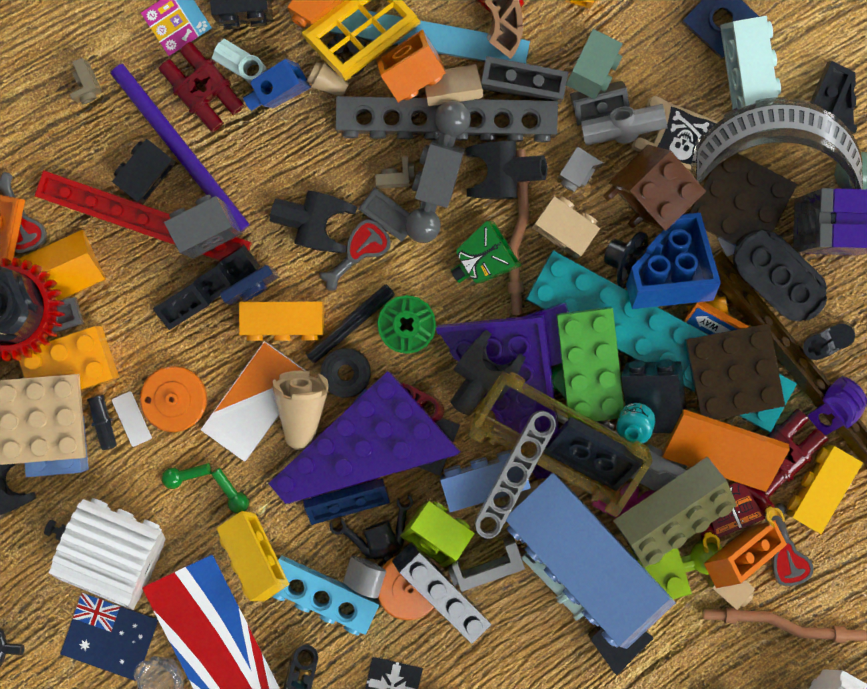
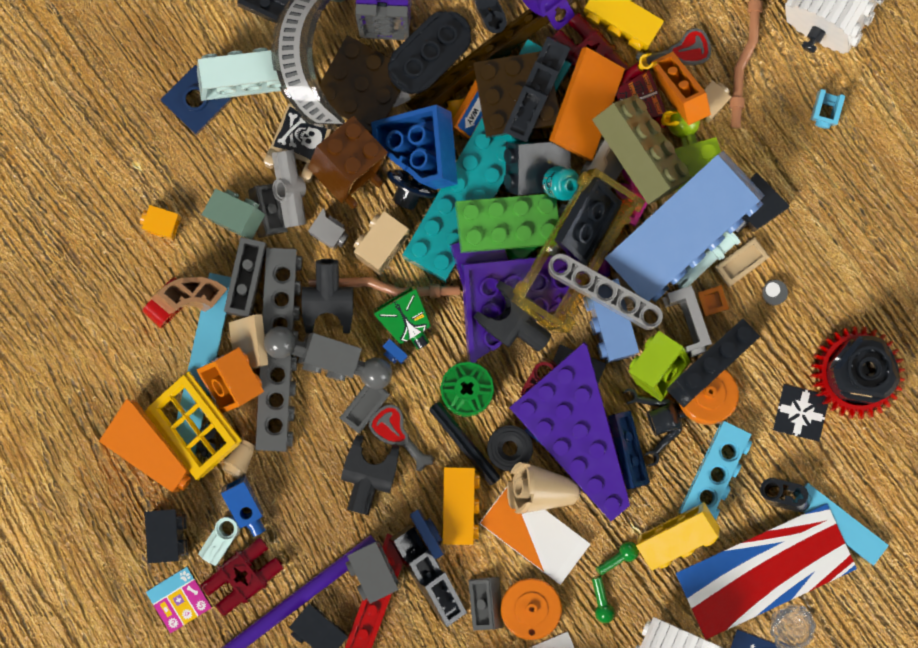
camera: 90 degrees left, 5 degrees down
(179, 350) = (485, 603): none -> dark grey slope
(364, 577) = (698, 434): light grey beam -> none
(392, 179) = (331, 402): dark tan bracket -> none
(446, 245) = (394, 353): none -> blue plate
(511, 590) = (712, 301): none -> orange tile
(521, 658) = (774, 292): none -> dark grey tile
(554, 622) = (741, 262): none -> tan tile
(740, 394) = (537, 89): none -> black slope

